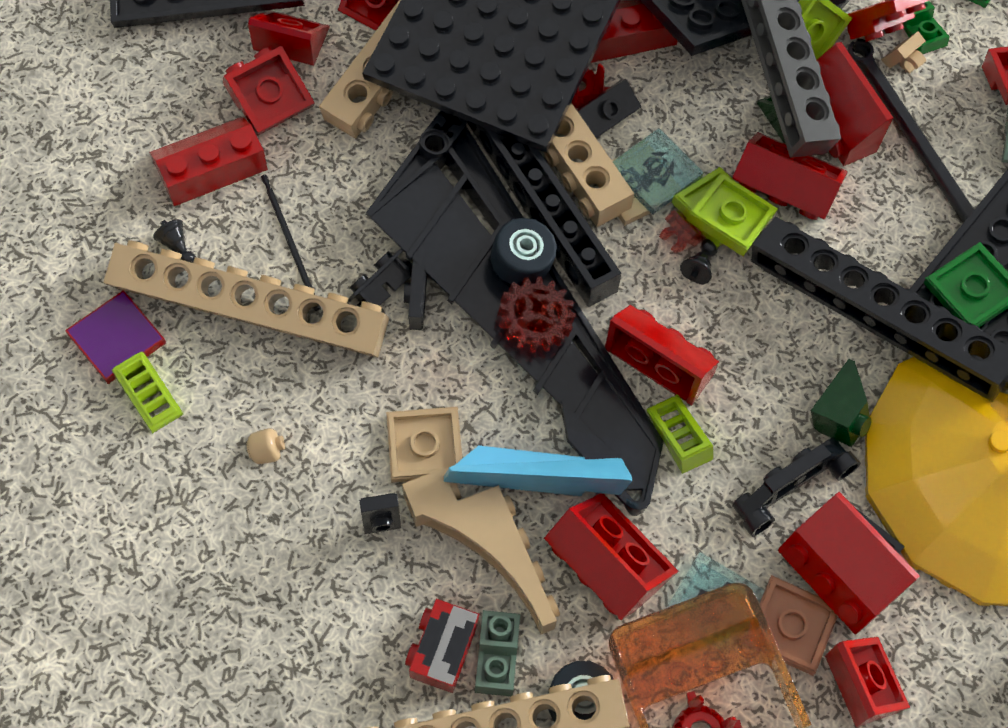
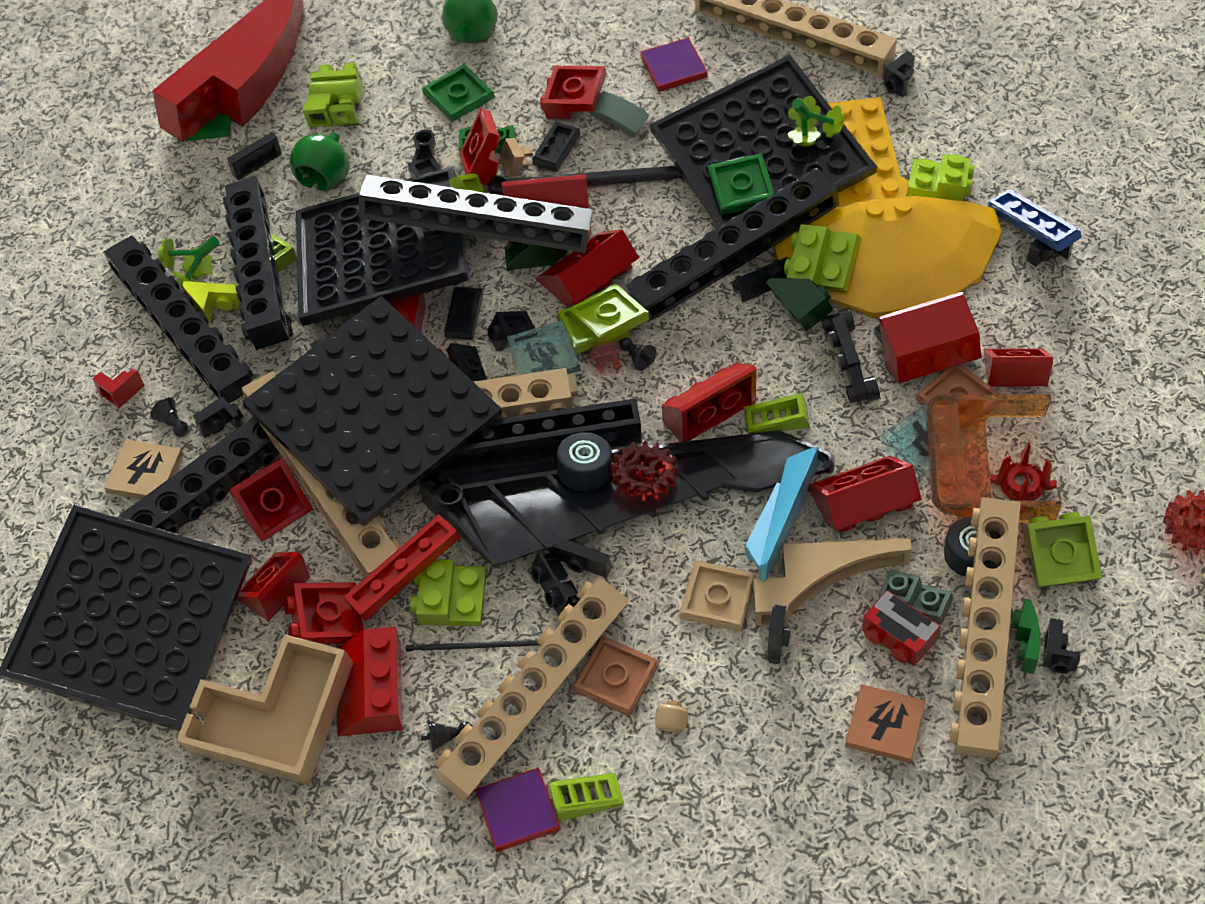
camera: 60 degrees left, 10 degrees down
(130, 94) = (281, 727): none -> tan piece
(294, 376) = (615, 676): none -> nougat tile
(324, 666) = (885, 723): none -> nougat tile
(332, 188) = (449, 594): none -> lime plate
(334, 131) = (402, 567): none -> red plate
(678, 80) = (463, 313): none -> black plate
(679, 127) = (508, 324): none -> black bracket
(871, 365) = (755, 283): none -> black hinge
(908, 408) = (823, 257): none -> lime plate
(944, 88) = (556, 146): none -> black plate

